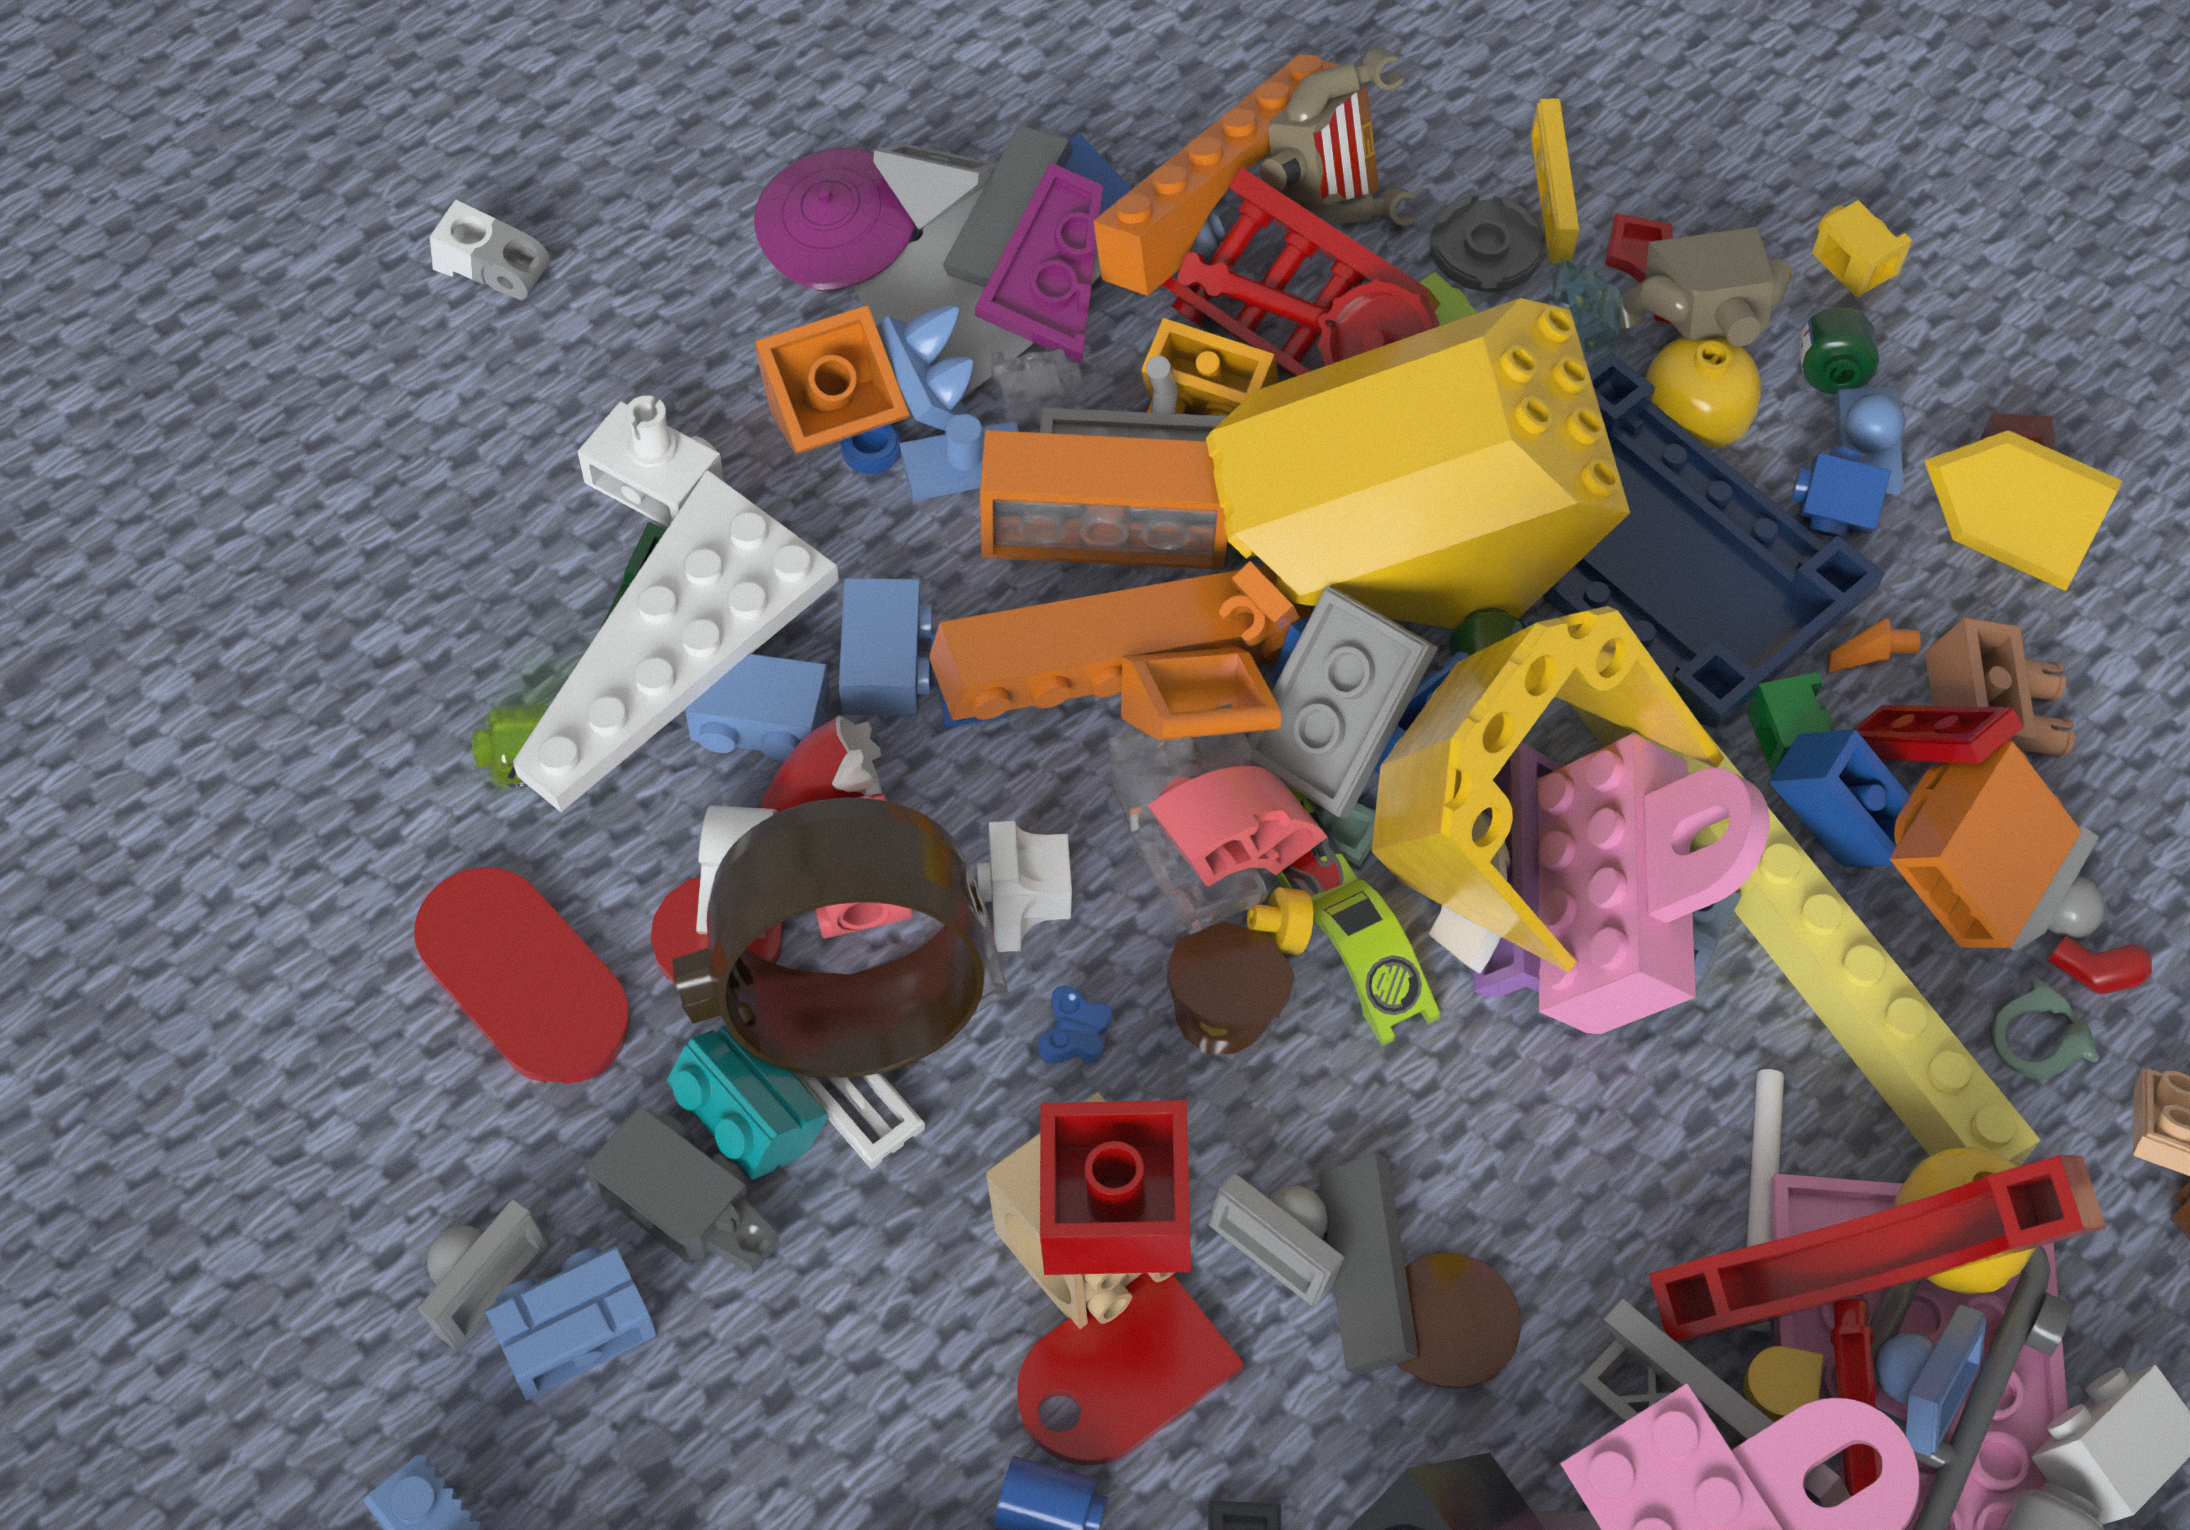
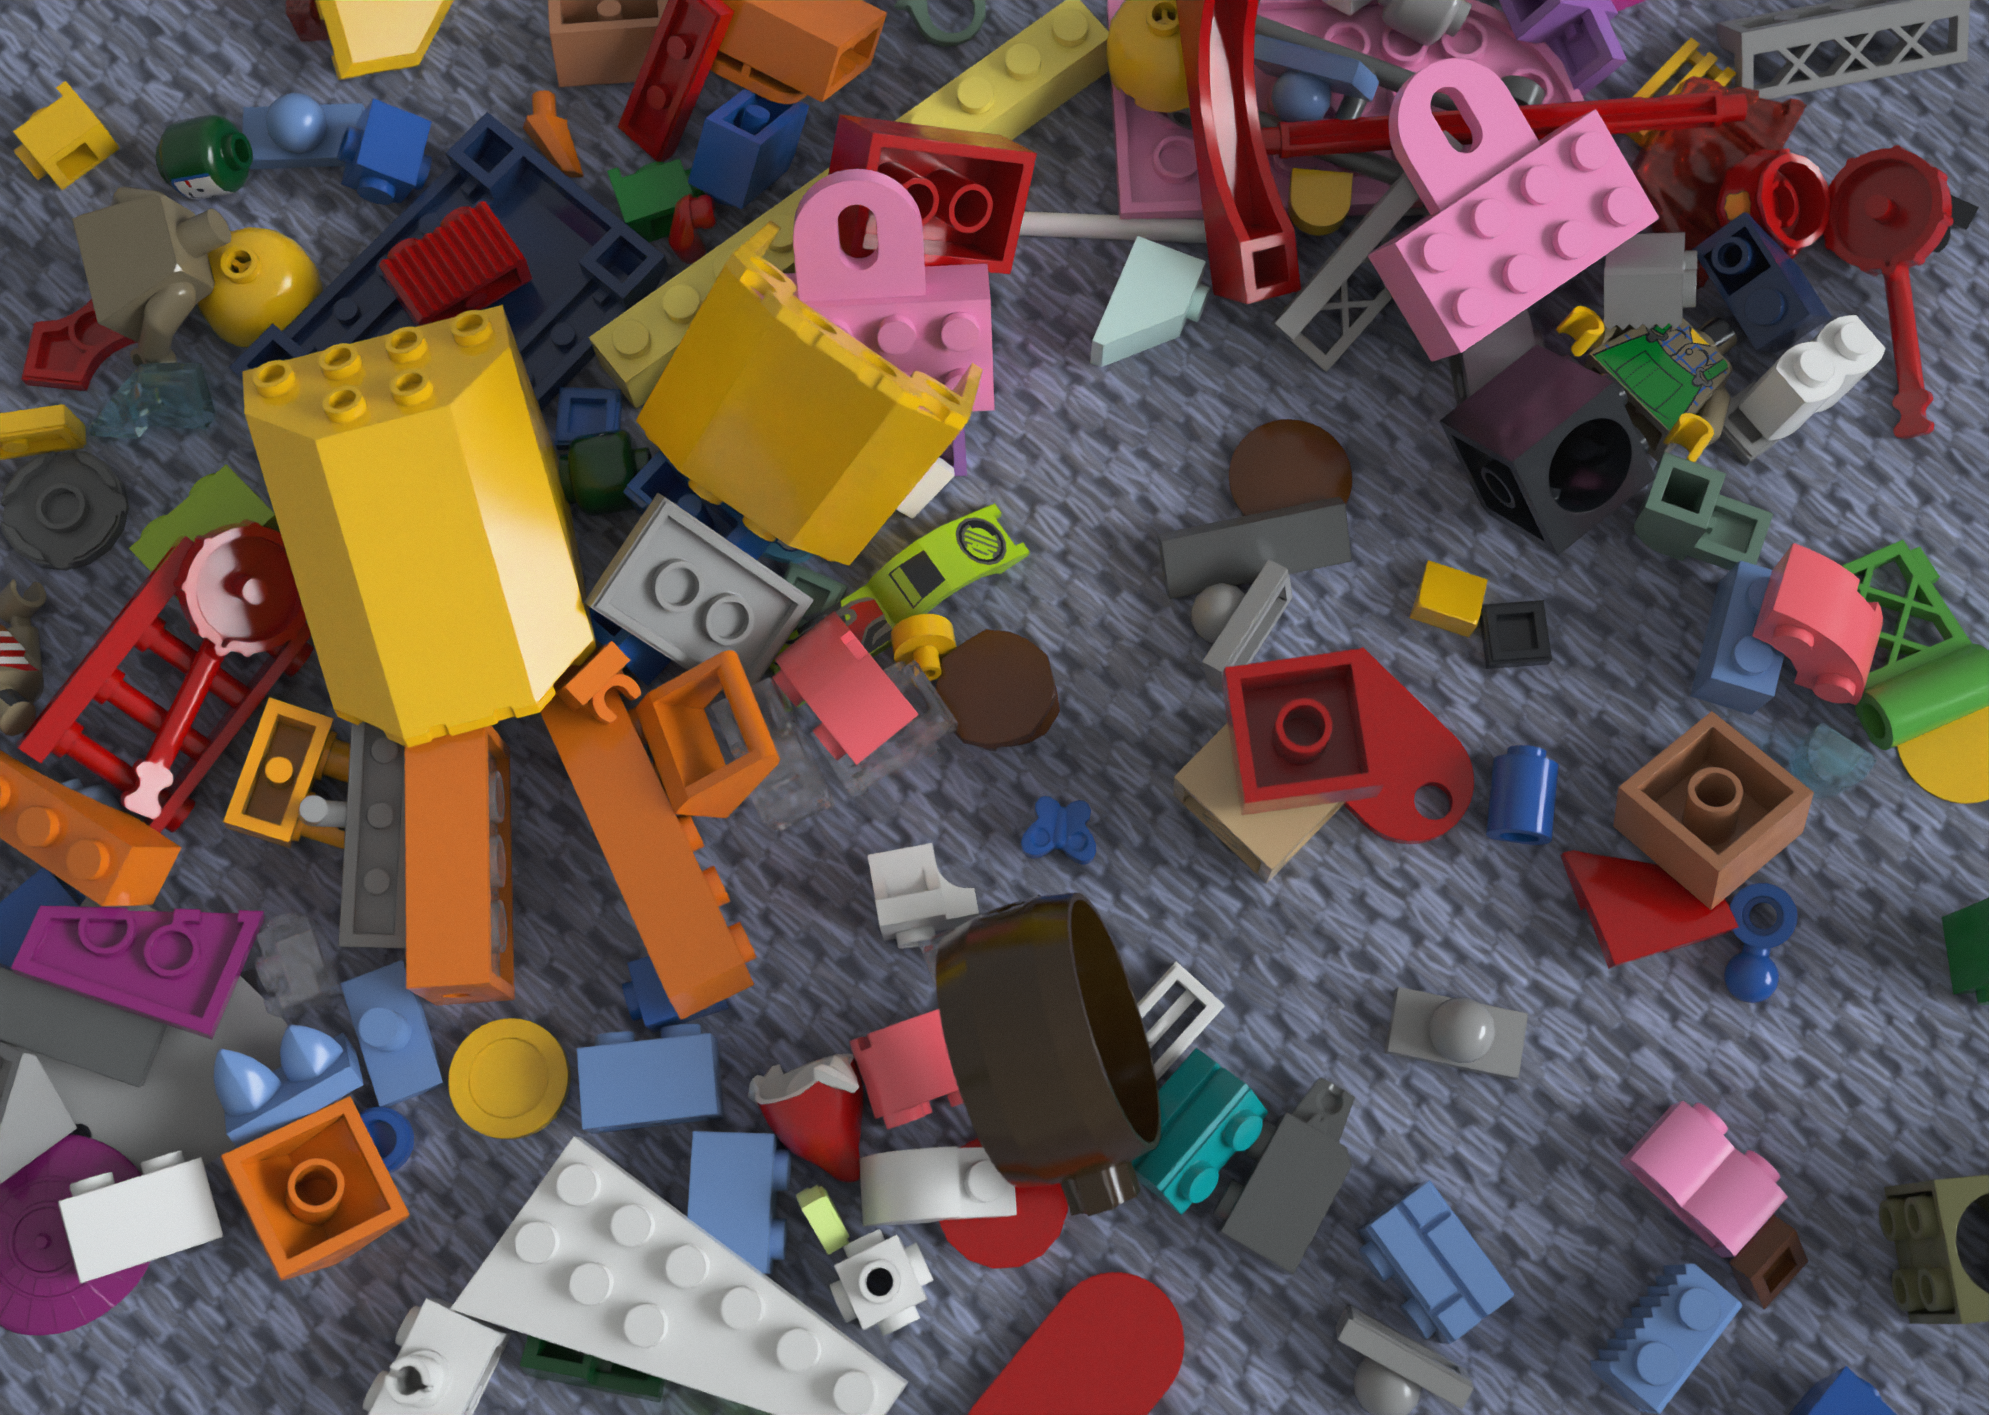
camera: 95 degrees left, 15 degrees up
(658, 812) = (908, 1273): none -> white brick
(730, 767) = (823, 1218): none -> yellowish green tile
(802, 1395) = (1456, 1033): none -> light grey tile
(829, 256) = (139, 1218): none -> white brick
(907, 540) = (509, 1079): none -> yellow piece
(1294, 1471) = (1449, 599): none -> yellow slope
(1663, 1188) = (1149, 302): none -> light aqua slope
(1706, 533) = (455, 267): none -> red brick
(1752, 743) = (688, 217): none -> red arm
(1781, 952) = (963, 182): none -> red brick

